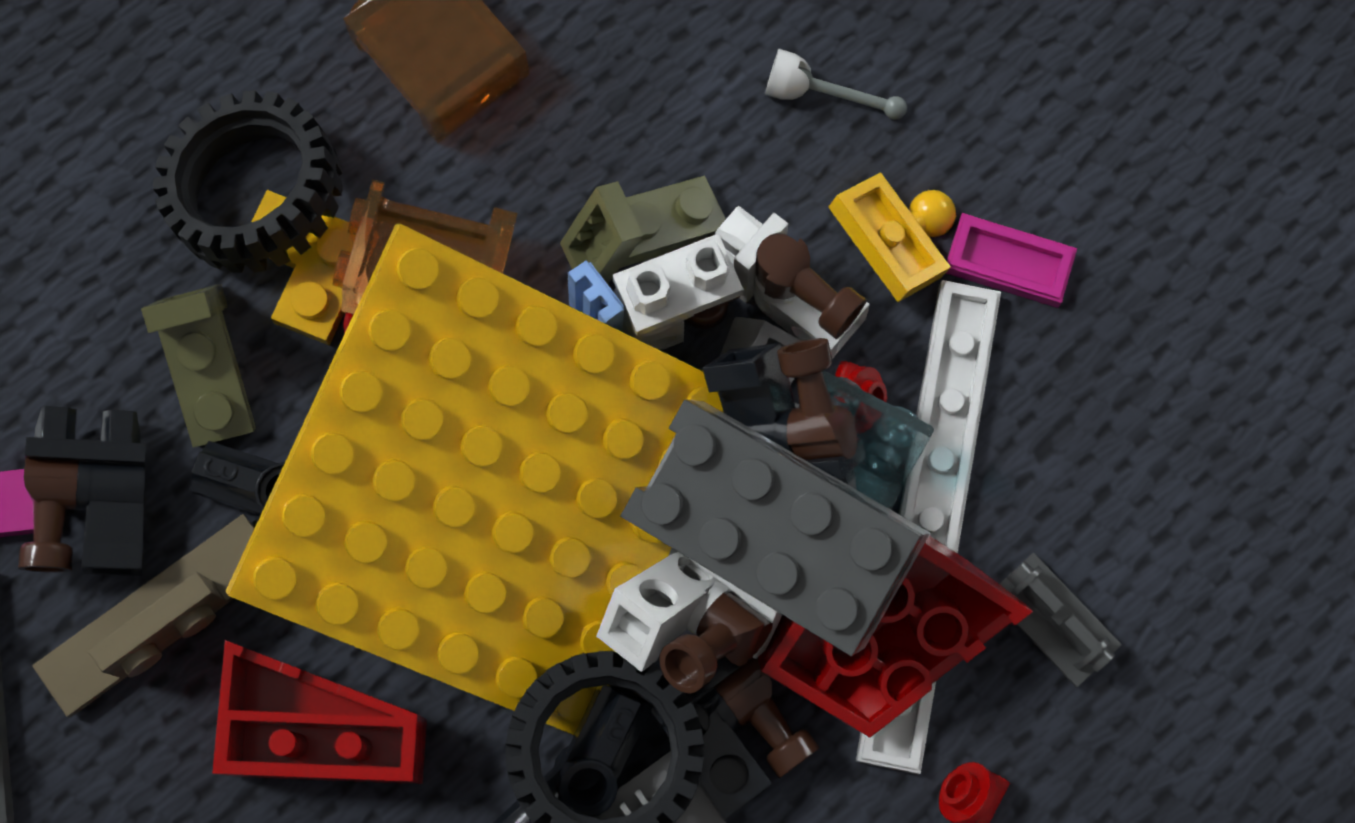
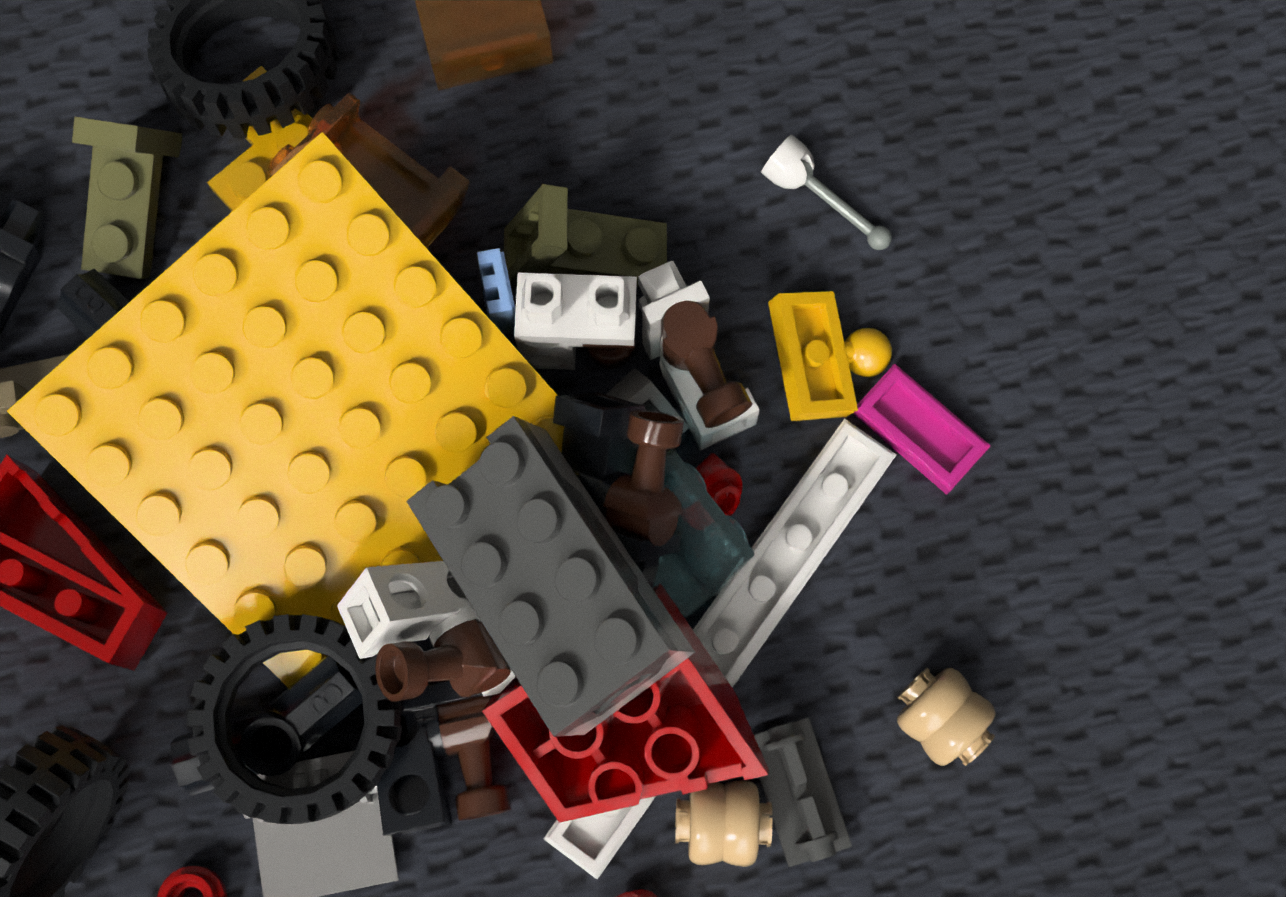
camera: 25 degrees right, 0 degrees up
(1007, 674) = (724, 824): none -> tan piece
(1150, 497) = (946, 716): none -> tan piece

